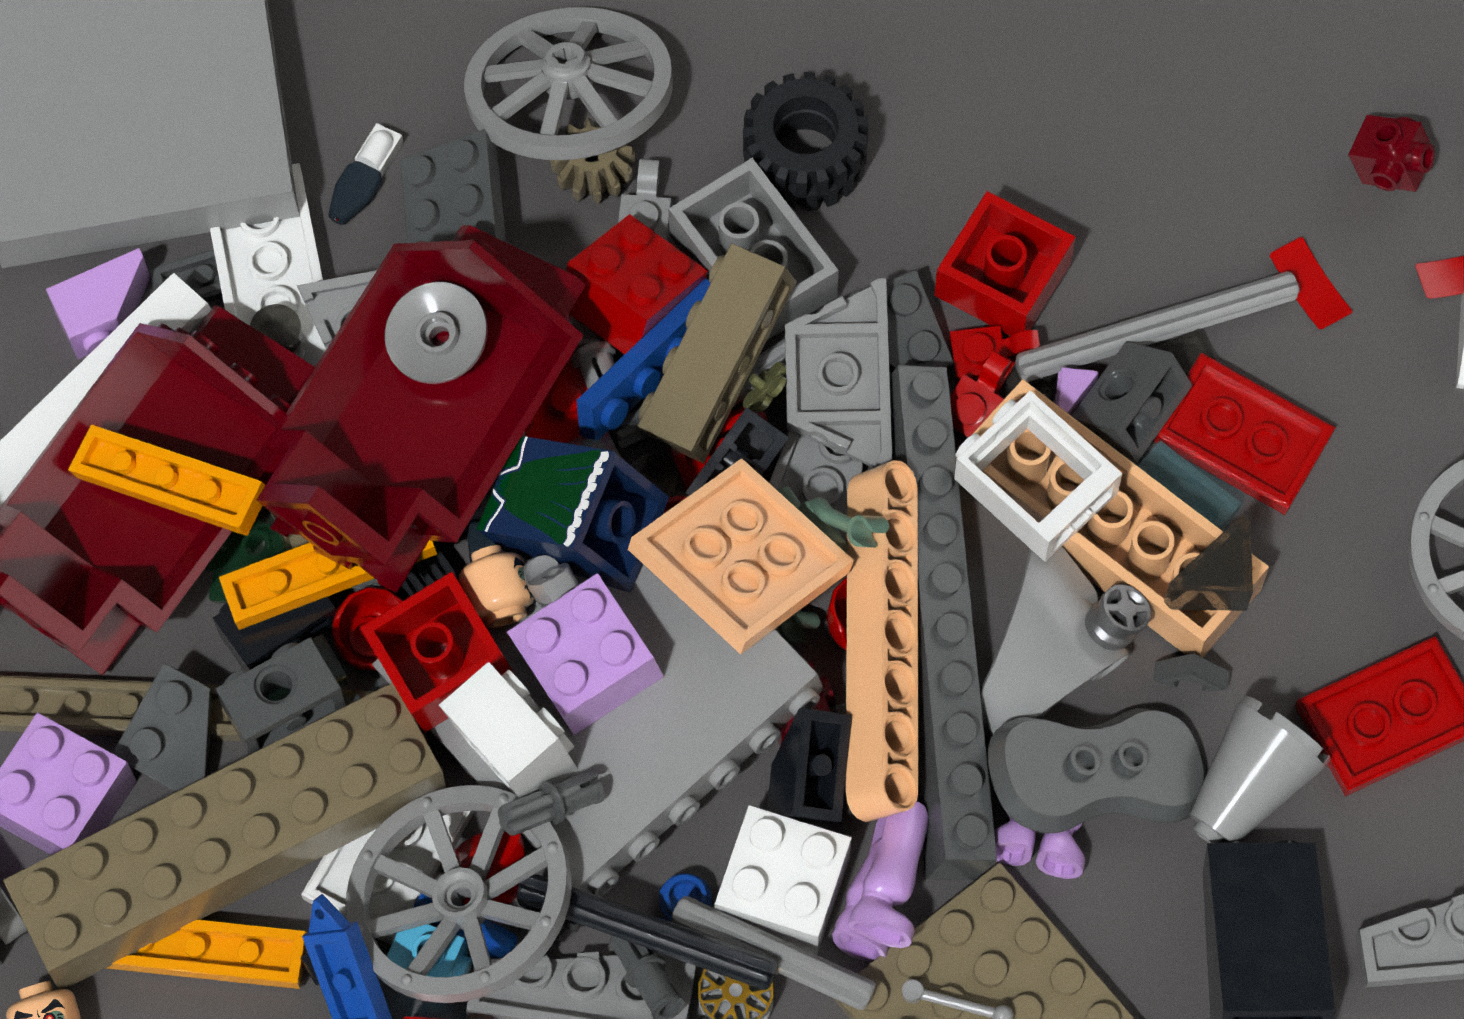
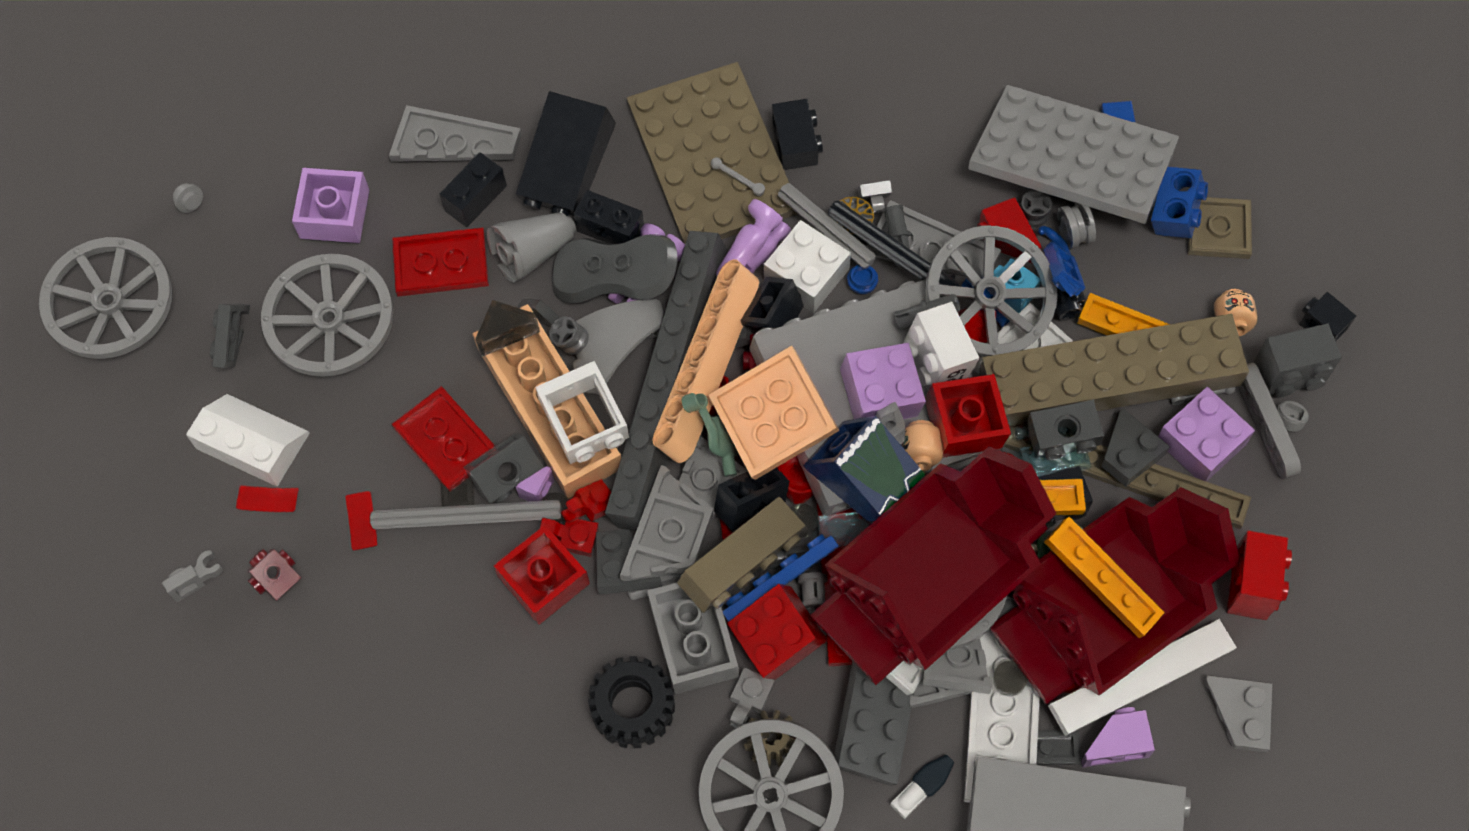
camera: 160 degrees left, 0 degrees up
(421, 317) = (925, 588): light grey dish -> none
(765, 386) = (715, 536): olive plant -> none
(1142, 857) = (607, 219): none -> black brick
(1190, 485) = (496, 410): clear light blue plate -> none
(1393, 842) = (473, 189): none -> black brick

